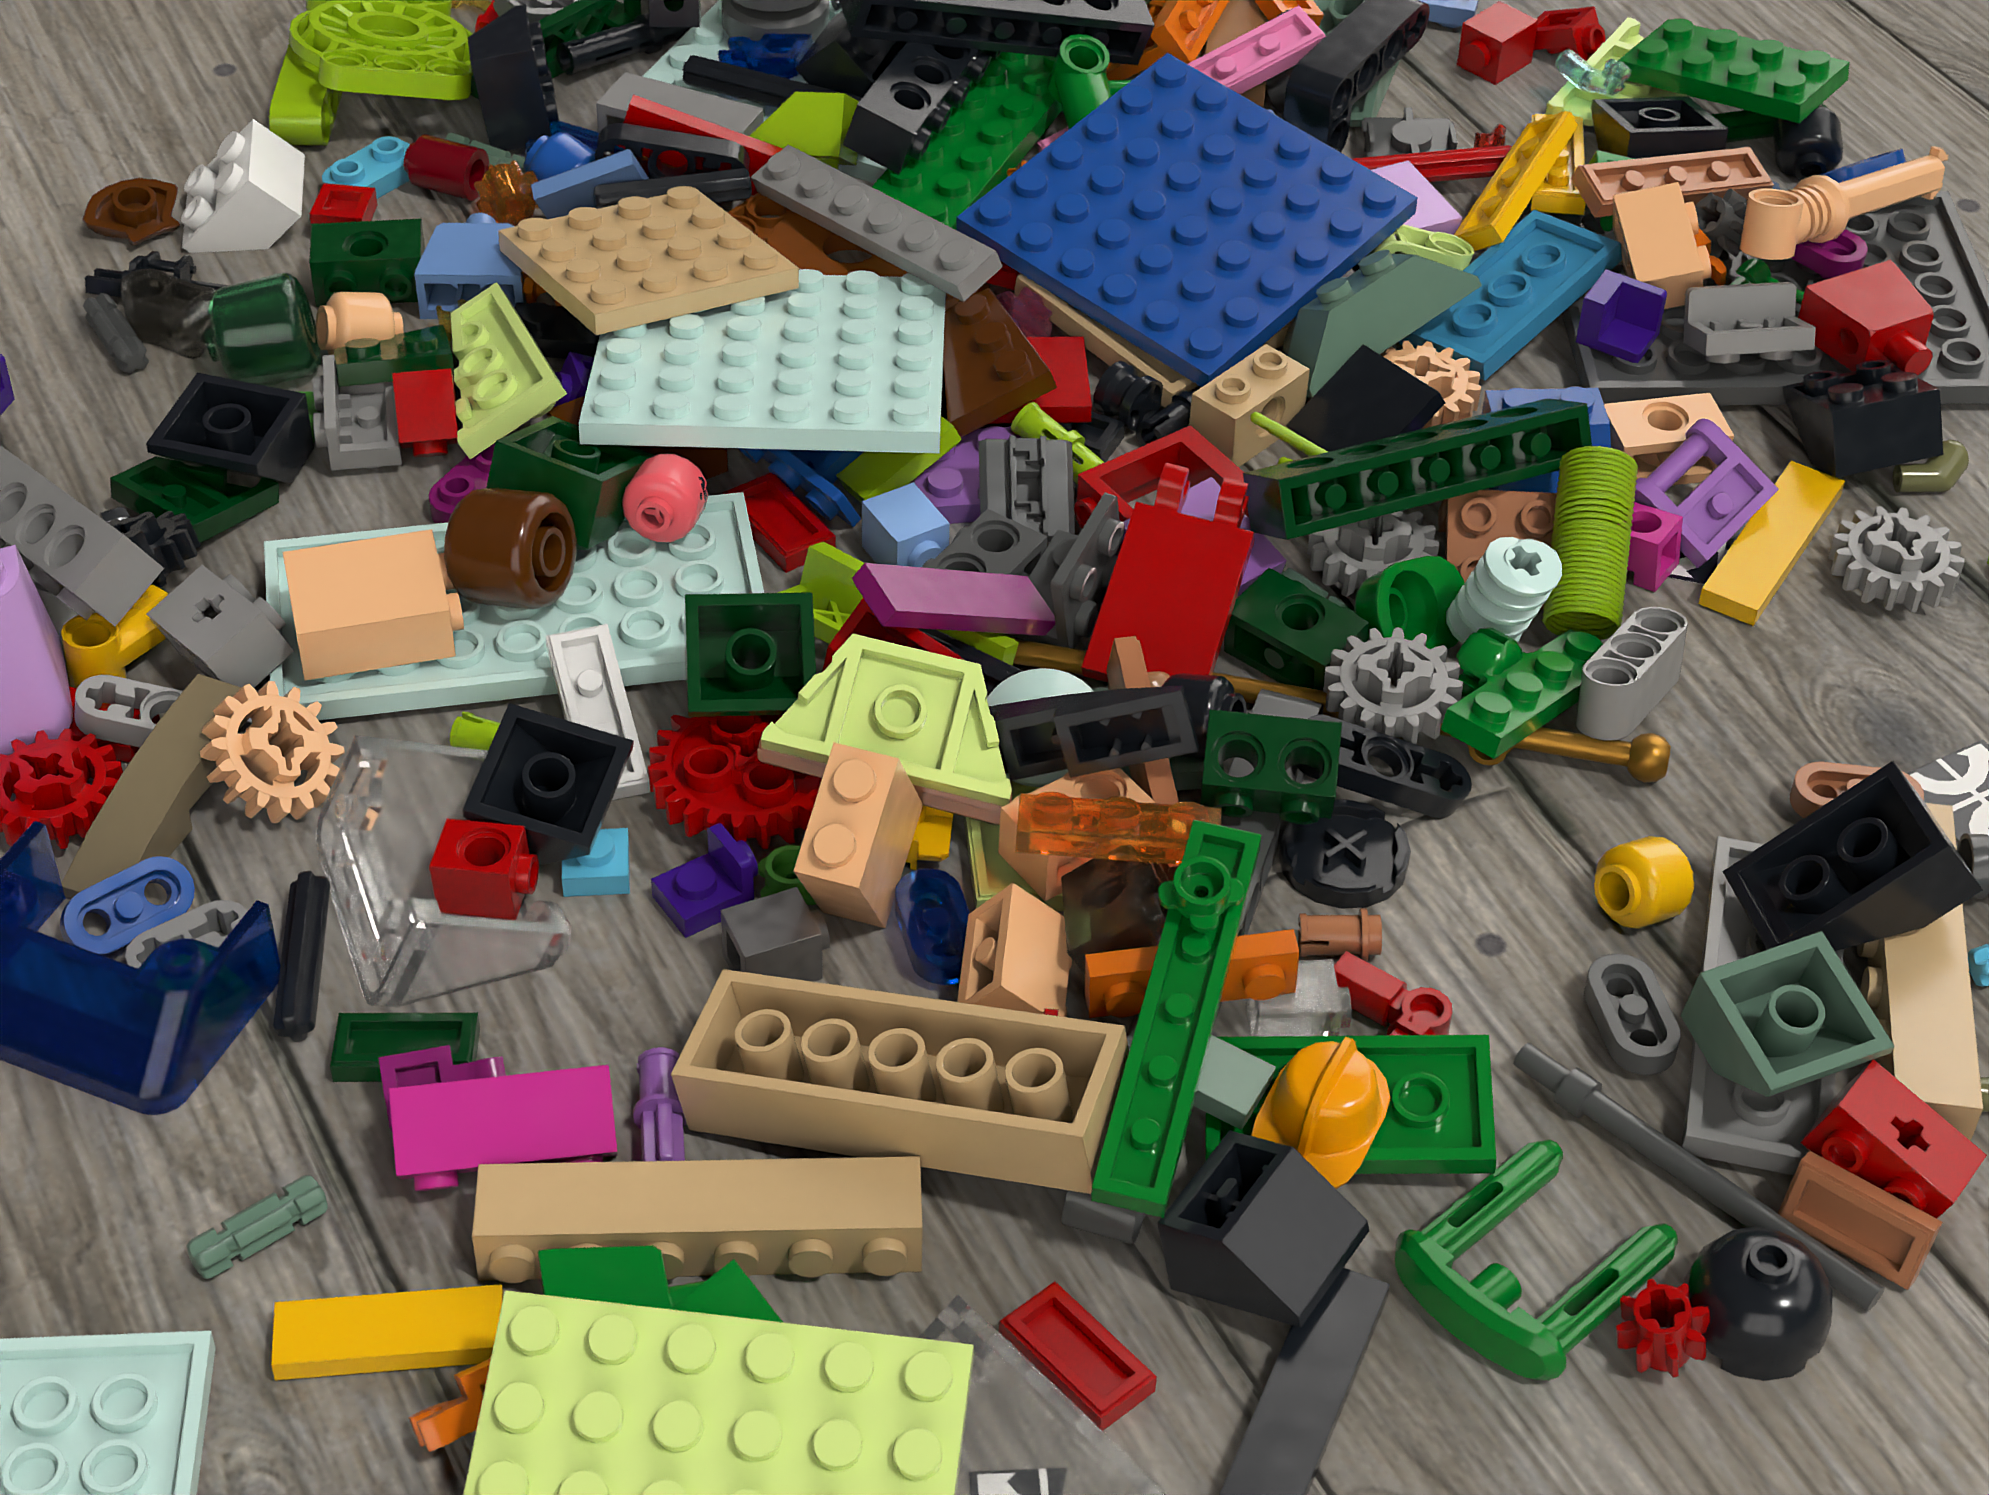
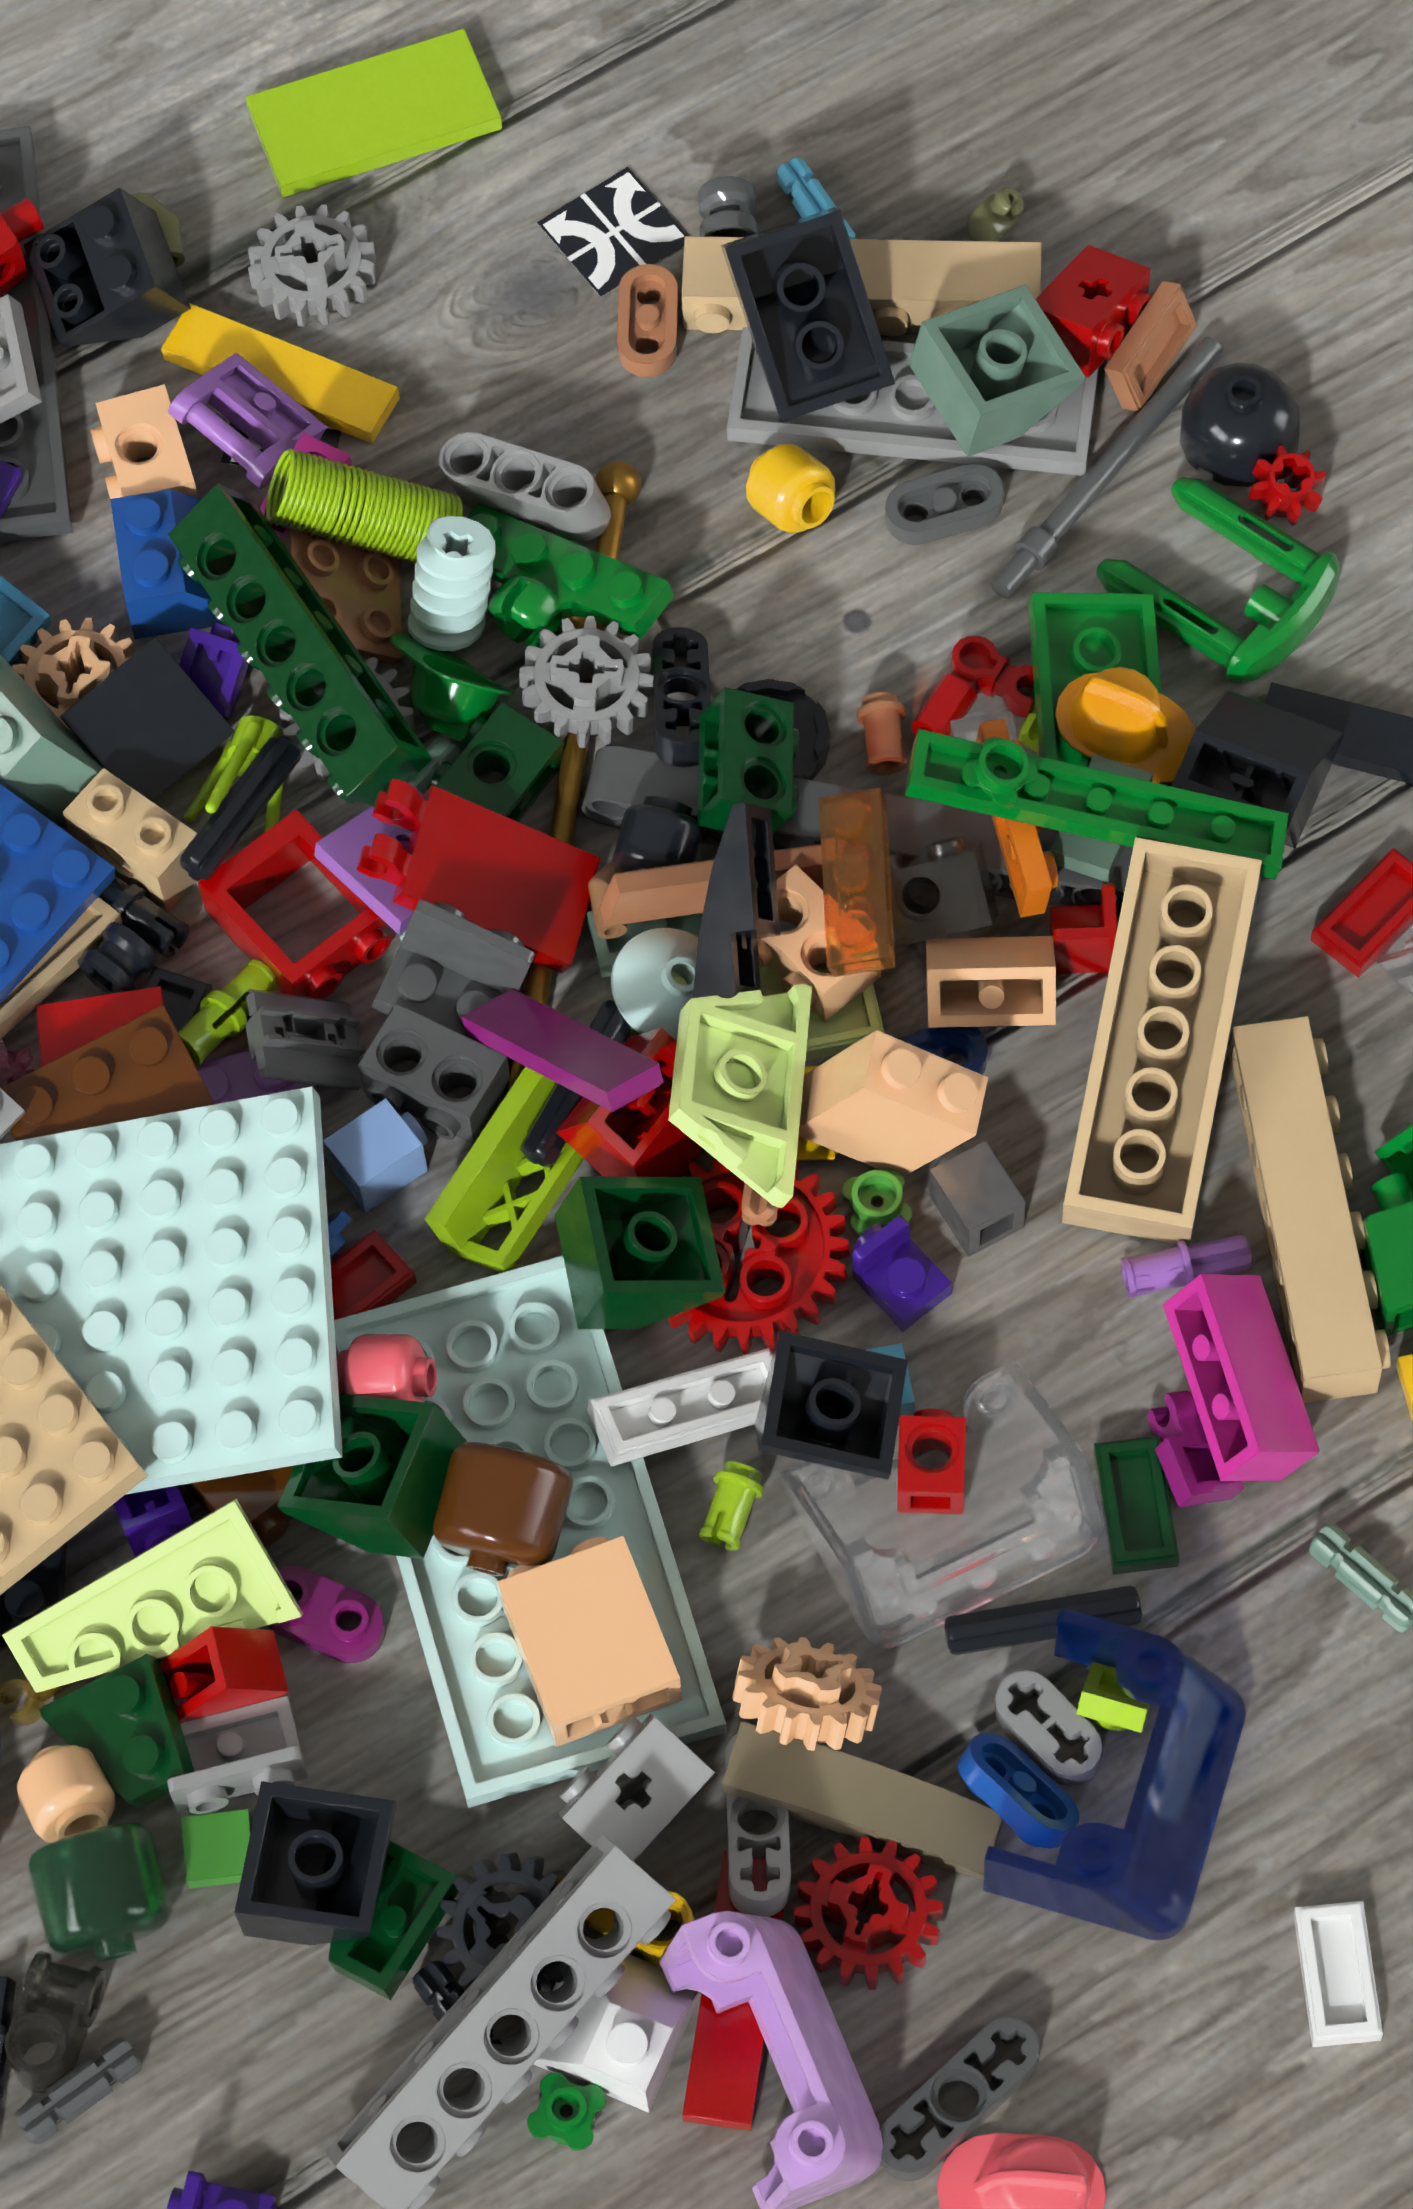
camera: 90 degrees left, 20 degrees up
(1238, 435) = (240, 808): none -> black axle

